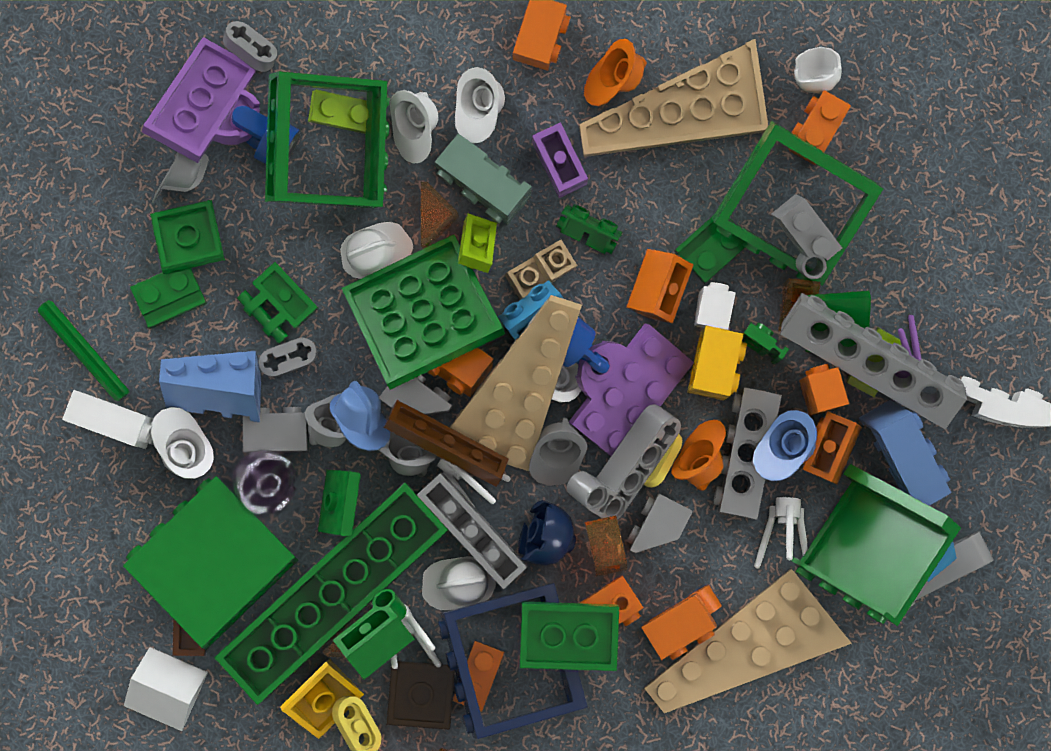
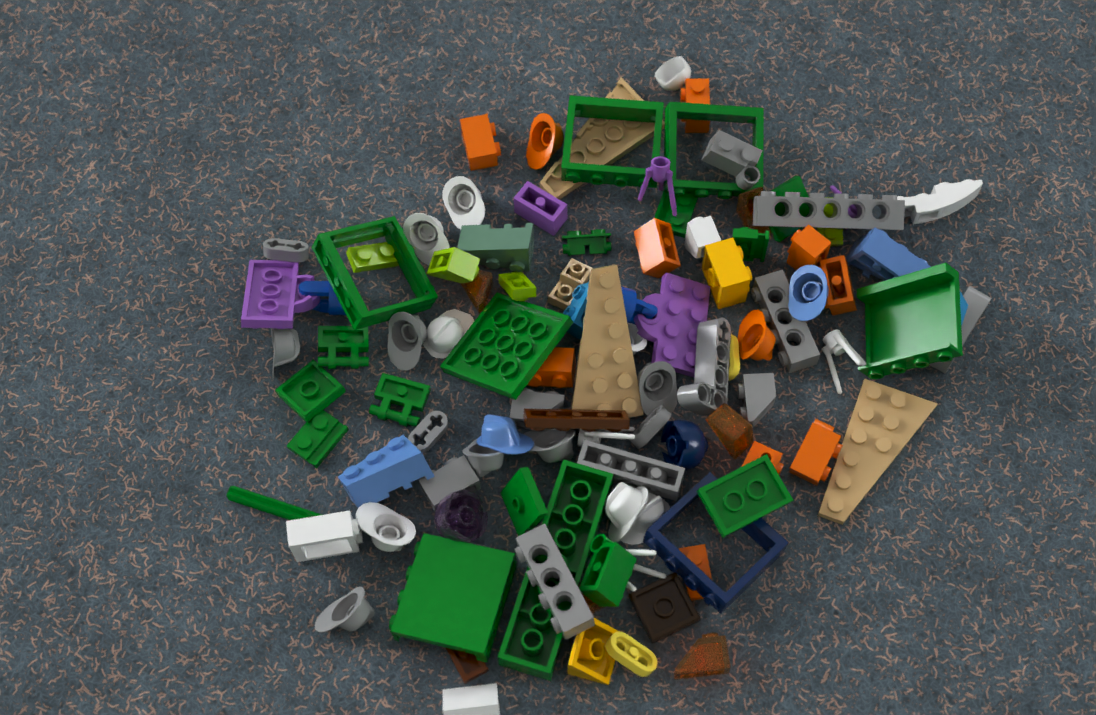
camera: 25 degrees left, 20 degrees down
(92, 512) = (347, 613): none -> light grey piece
(249, 194) = (343, 339): none -> green plate
(319, 668) = (540, 542): none -> light grey brick
(320, 237) = (405, 340): none -> light grey piece
(416, 184) = (454, 265): none -> lime slope
(439, 570) = (623, 507): none -> white piece
(524, 491) = (650, 426): none -> light grey beam
(712, 205) = (660, 172): none -> medium lavender plant
(717, 83) = (614, 110): none -> green window

